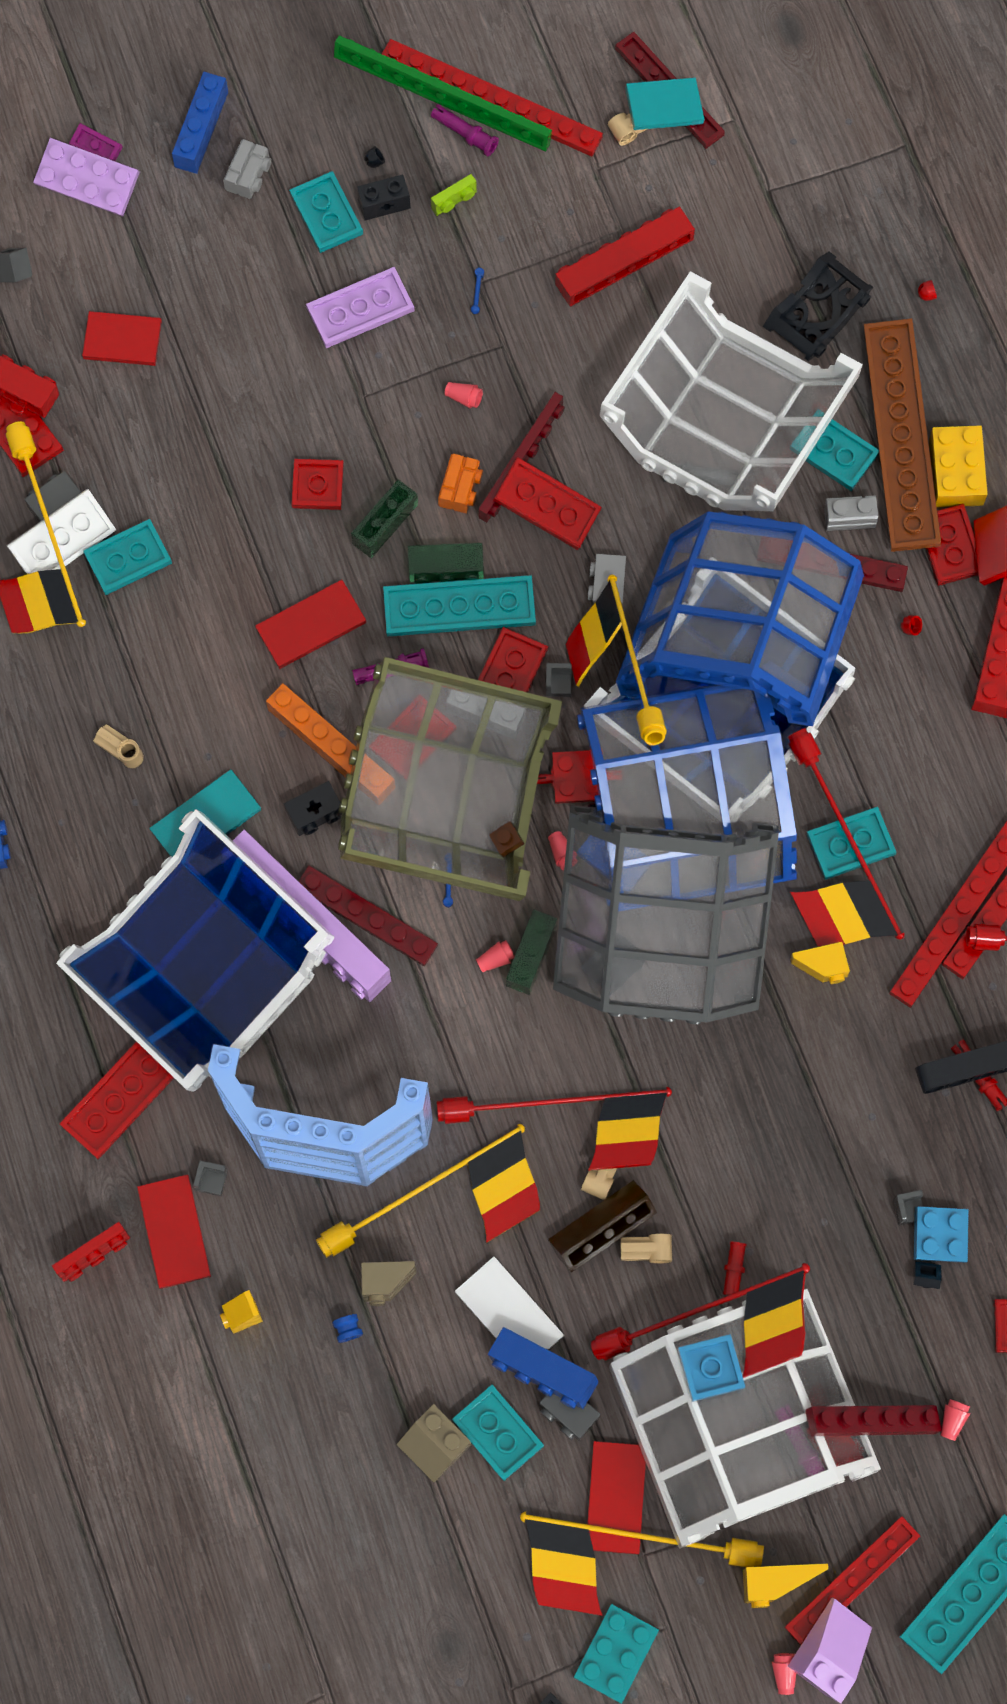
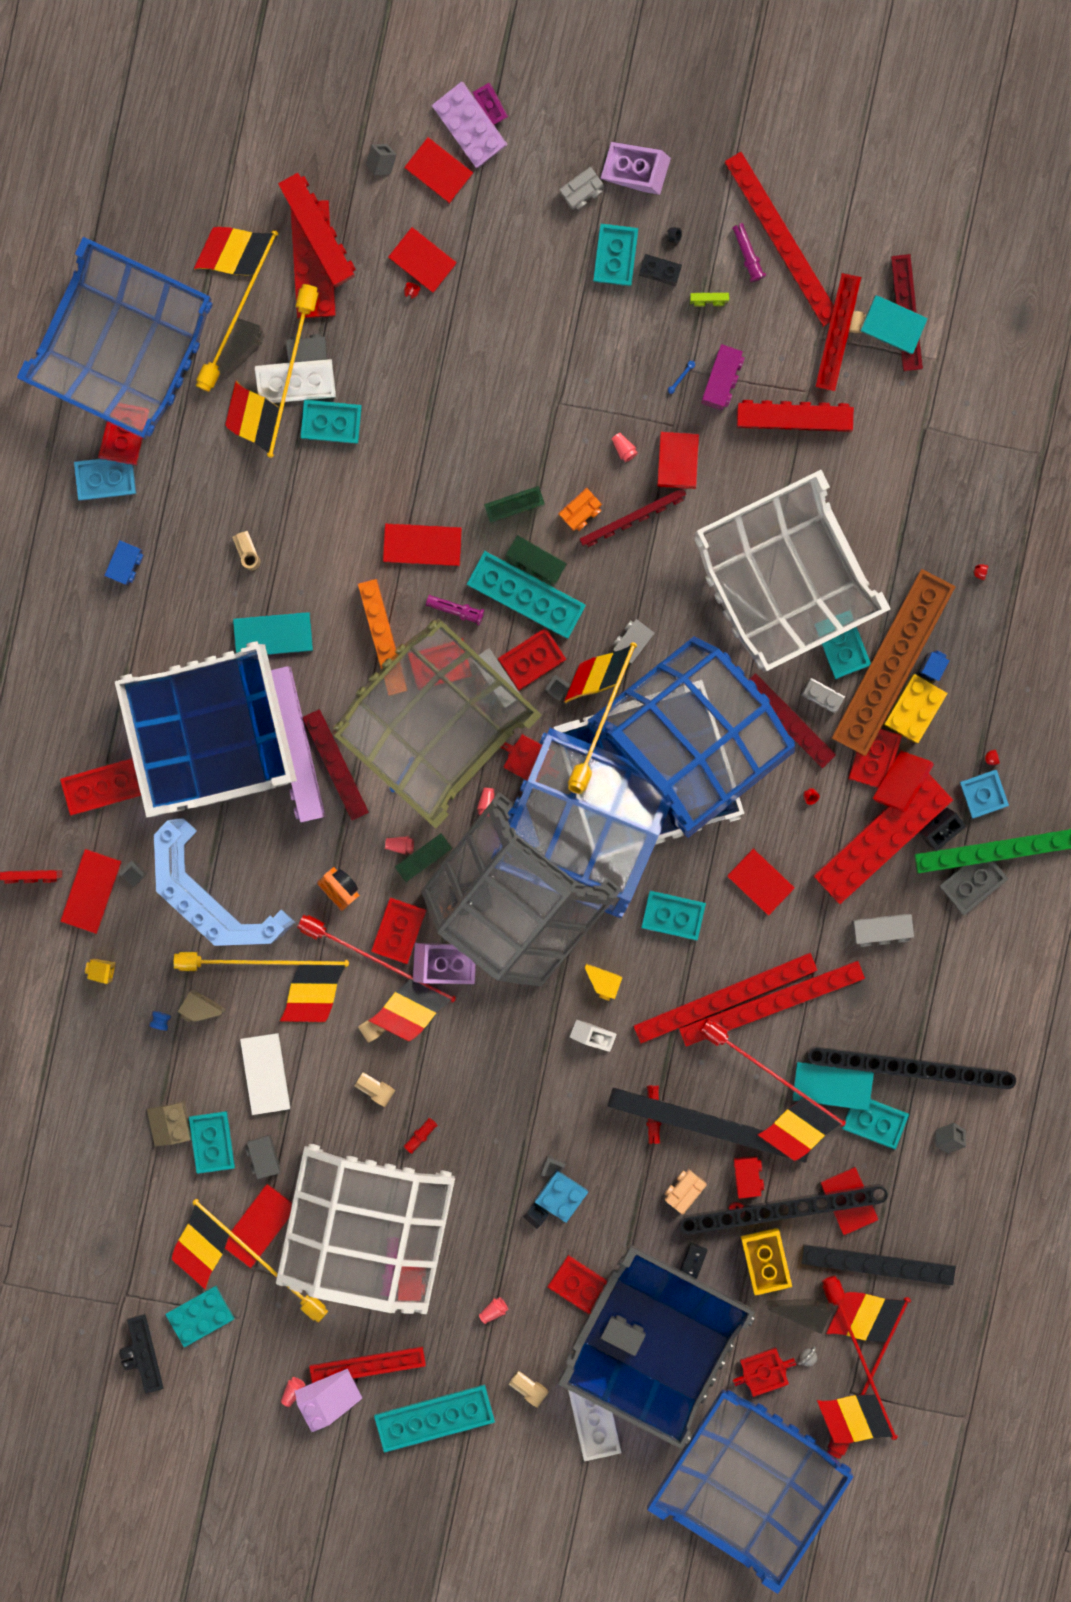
camera: 30 degrees right, 15 degrees up
(82, 241) = (438, 170): none -> red tile
(128, 373) = (411, 289): none -> red hinge
(200, 122) = (571, 133): blue brick -> none
(291, 115) = (636, 167): none -> lavender slope
(317, 484) = (487, 450): red plate -> none
(323, 799) = (334, 671): black brick -> none
(360, 307) = (594, 340): lavender plate -> none
(442, 93) = (748, 214): green plate -> none
(457, 1045) = (339, 887): none -> orange piece
(506, 839) = (453, 775): reddish brown plate -> none
(522, 259) = (723, 377): none -> magenta brick
(530, 370) = (678, 460): none -> red tile
(542, 1368) = (261, 1125): blue brick -> none
(547, 503) = (628, 562): red tile -> none
(556, 1052) = (398, 930): none -> red plate
(602, 1226) = (355, 1059): dark brown brick -> none
(612, 145) = (838, 331): none -> red plate
(631, 1056) = (442, 965): none -> lavender slope
(711, 1368) = (355, 1198): dark azure plate -> none
(771, 1323) = (410, 1194): flag -> none
(772, 1582) = (321, 1339): yellow slope -> none
(784, 320) = (873, 530): black fence -> none
(847, 909) = (639, 955): flag -> none
(852, 1029) = (593, 1035): none -> white slope
(873, 1420) = (439, 1285): dark red plate -> none
(921, 749) = (760, 881): none -> red tile
(947, 406) = (934, 666): none -> blue brick

